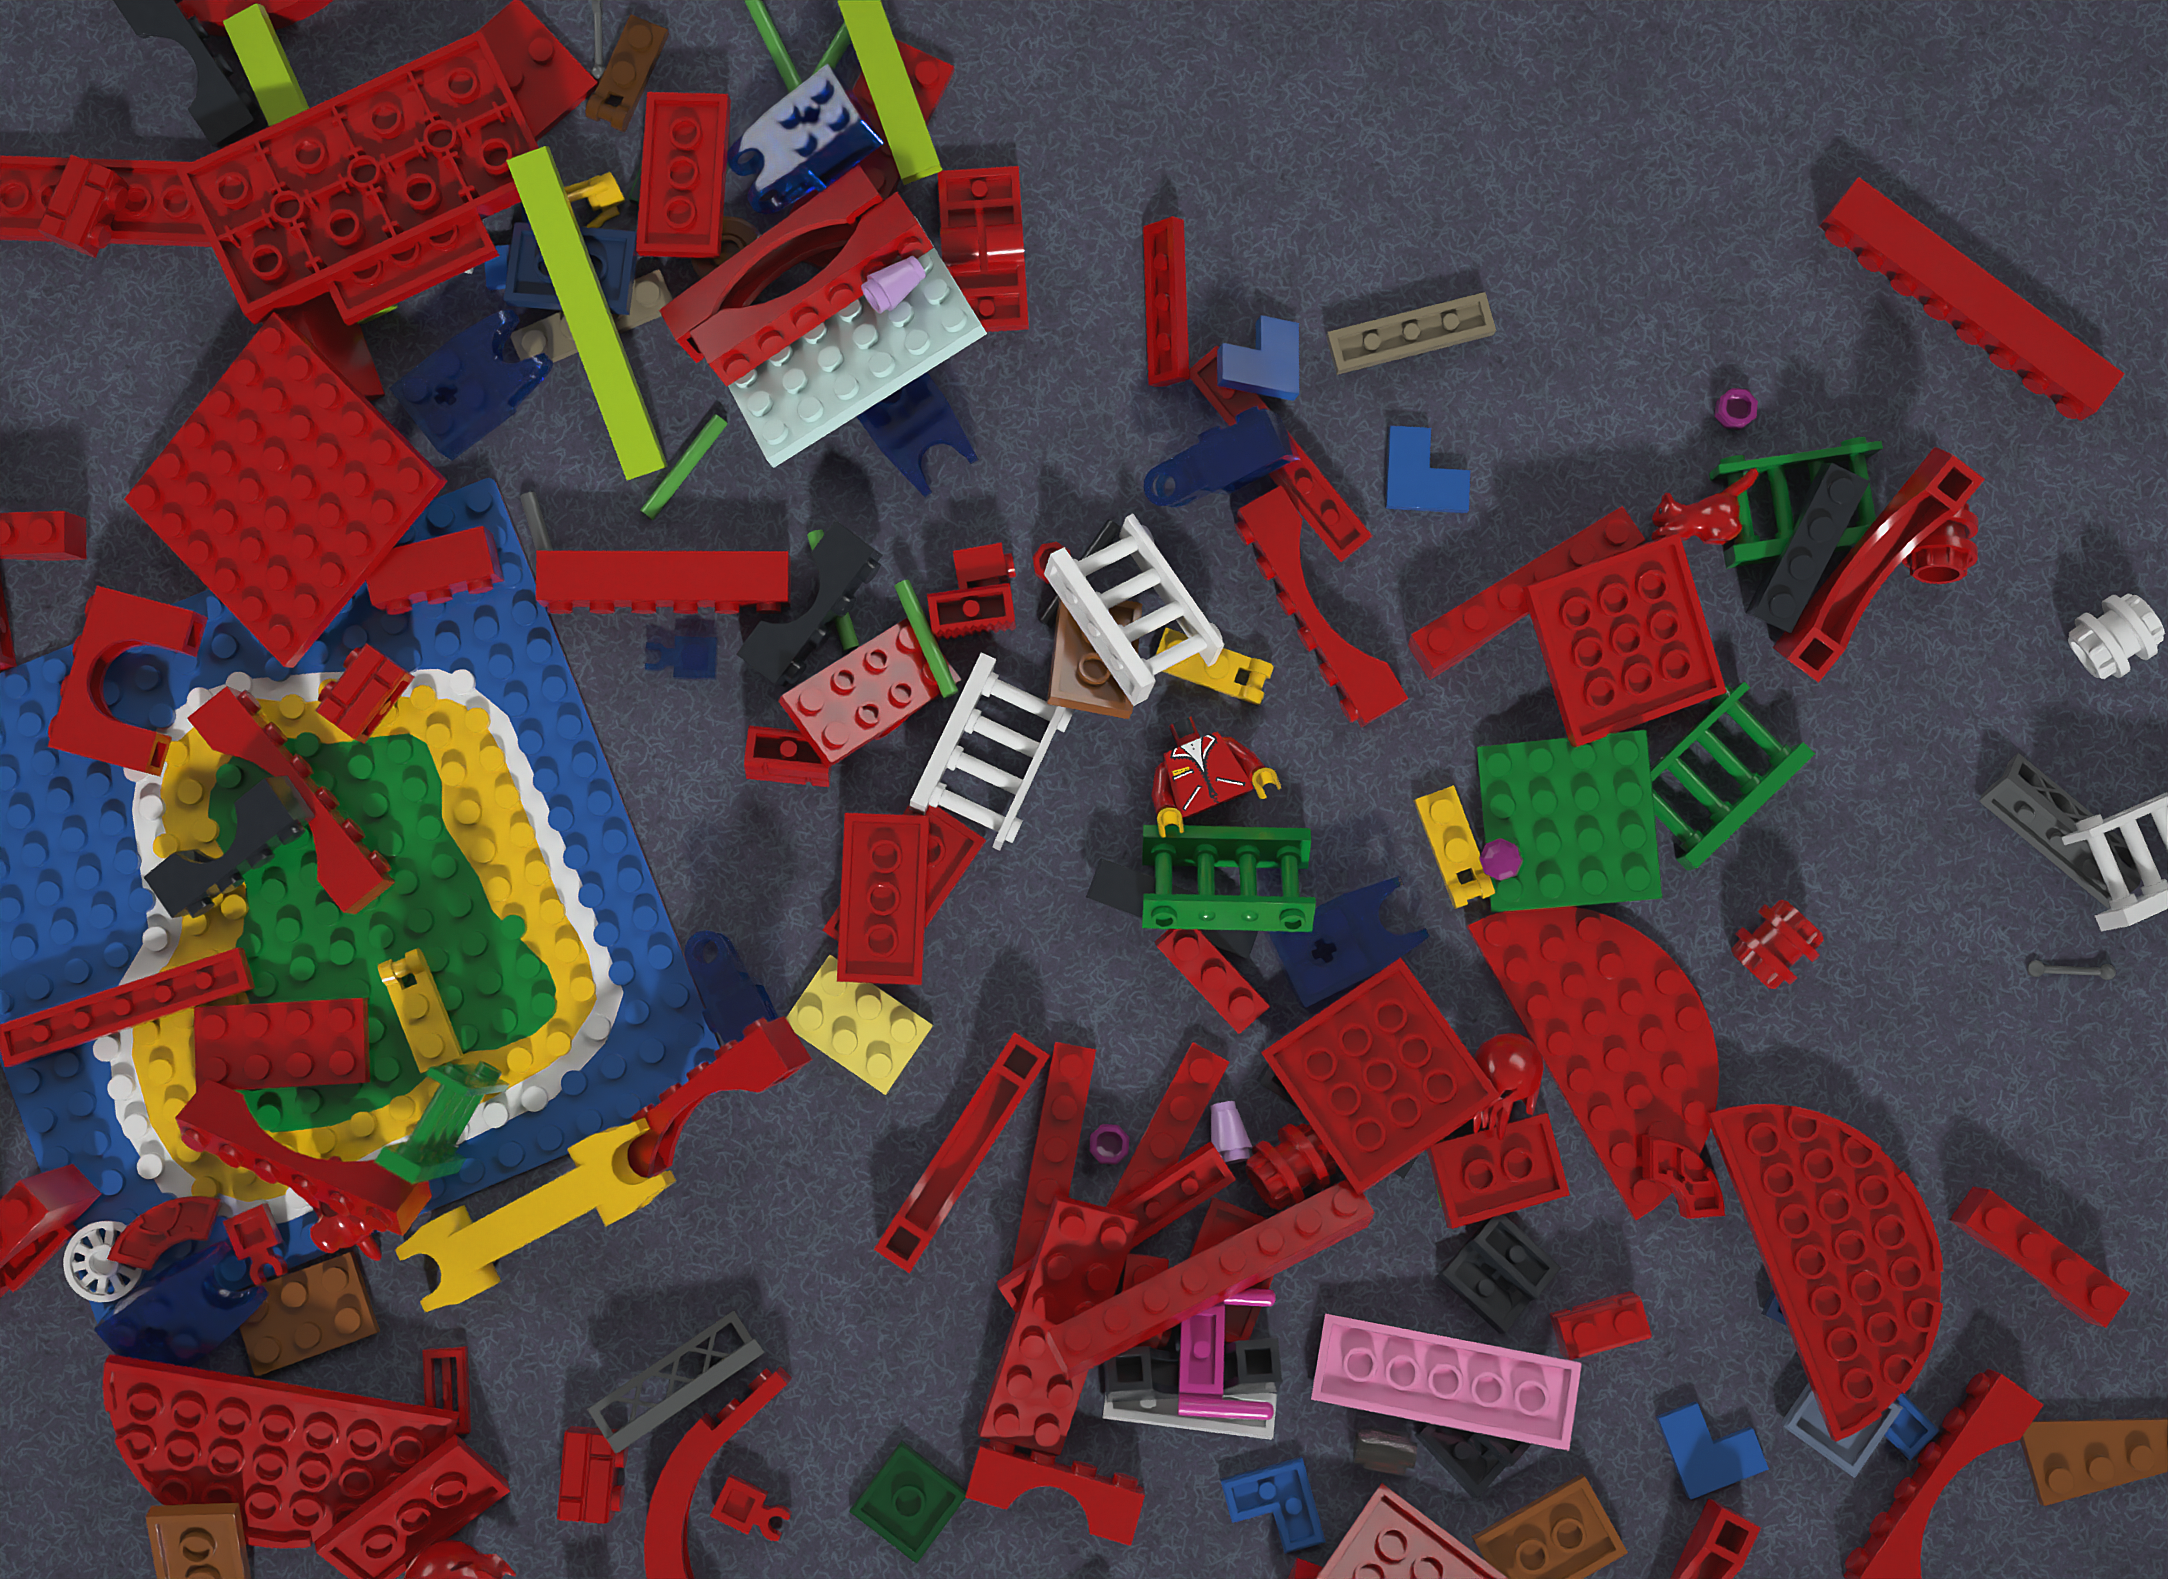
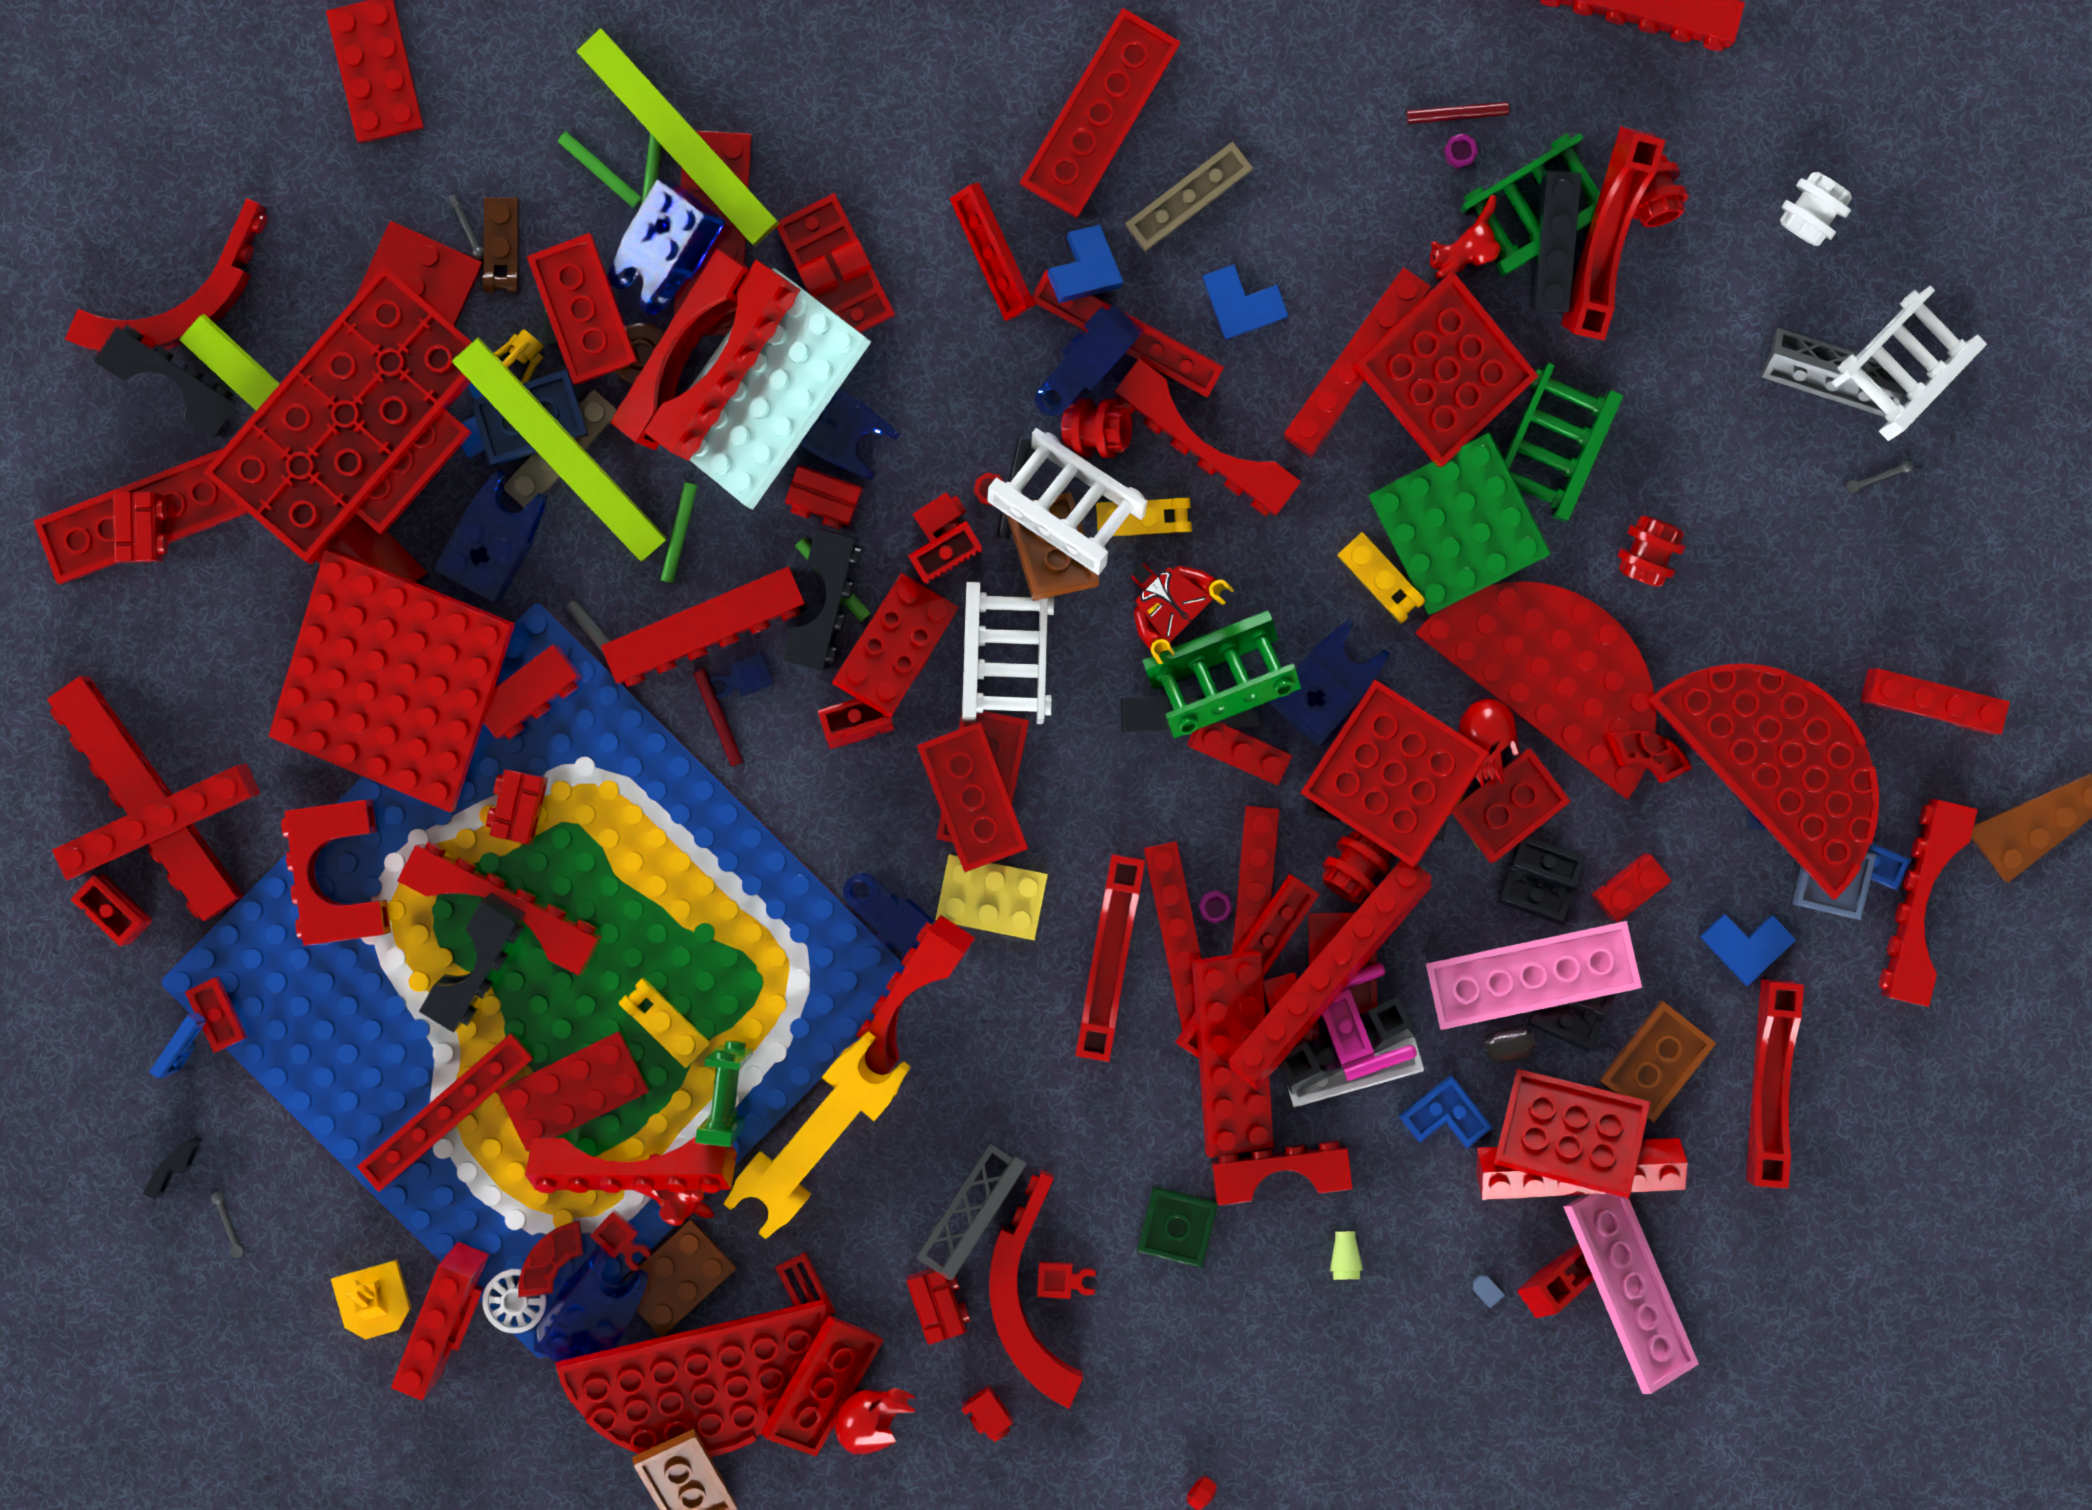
camera: 20 degrees left, 5 degrees up
(636, 693) = (718, 717): none -> dark red bar
(862, 493) = (823, 497): none -> red brick
(892, 284) = (783, 333): lavender cone -> none
(926, 638) = (920, 588): bright green bar -> none
(1201, 542) = (1101, 428): none -> red piece
(1229, 1133) = (1300, 861): lavender cone -> none
(1349, 202) = (1100, 113): none -> red plate
(1501, 859) = (1420, 574): magenta tile -> none
(1749, 366) = (1457, 112): none -> dark red bar

